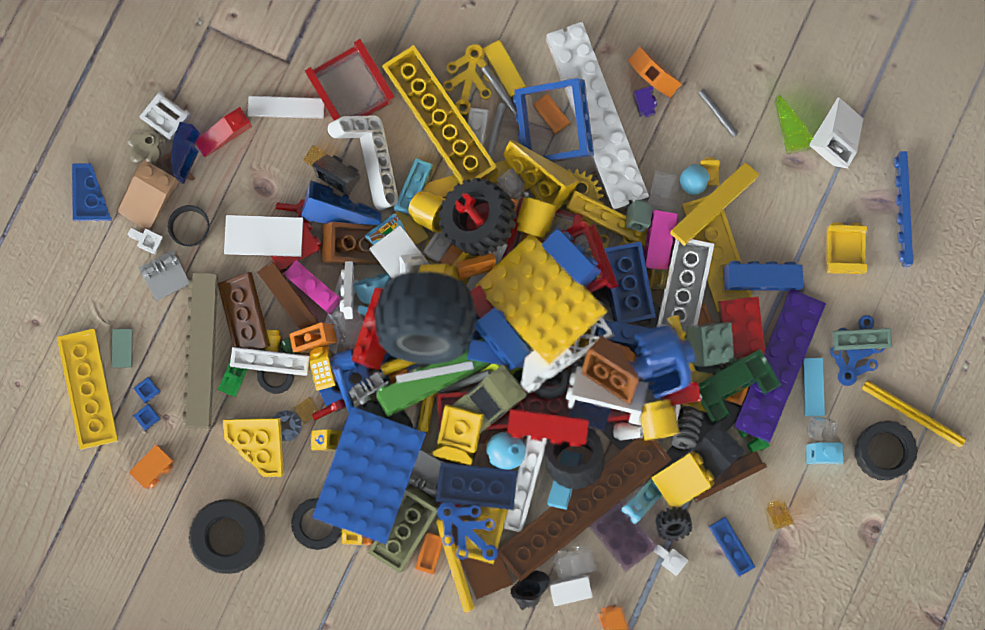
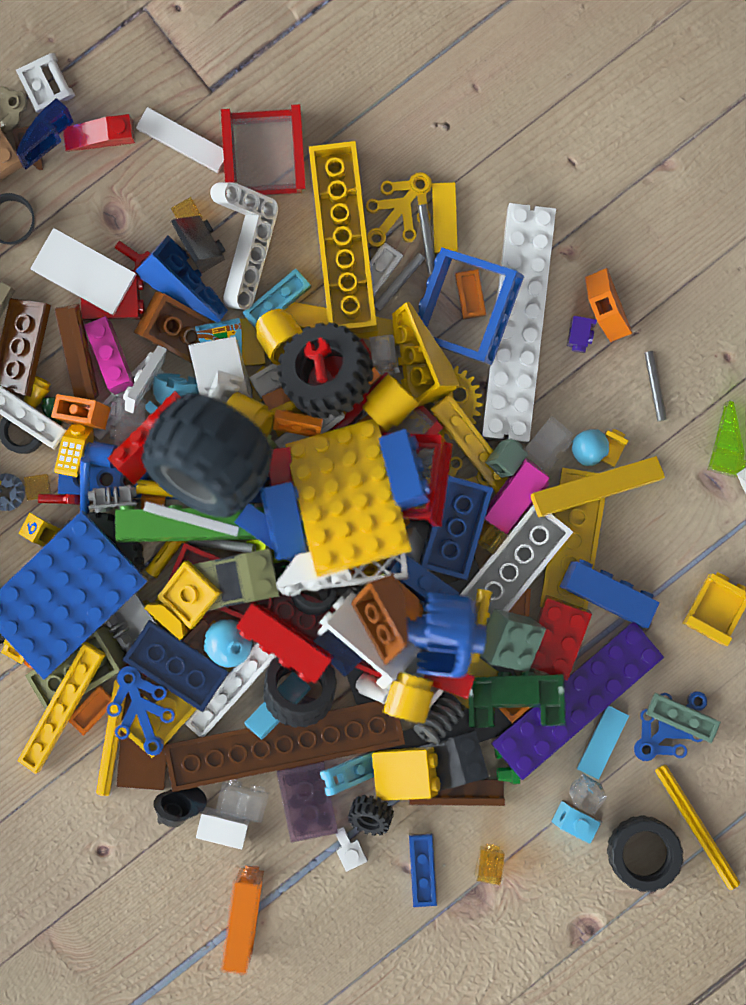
camera: 25 degrees right, 5 degrees up
(407, 560) = (61, 707): none -> yellow tile

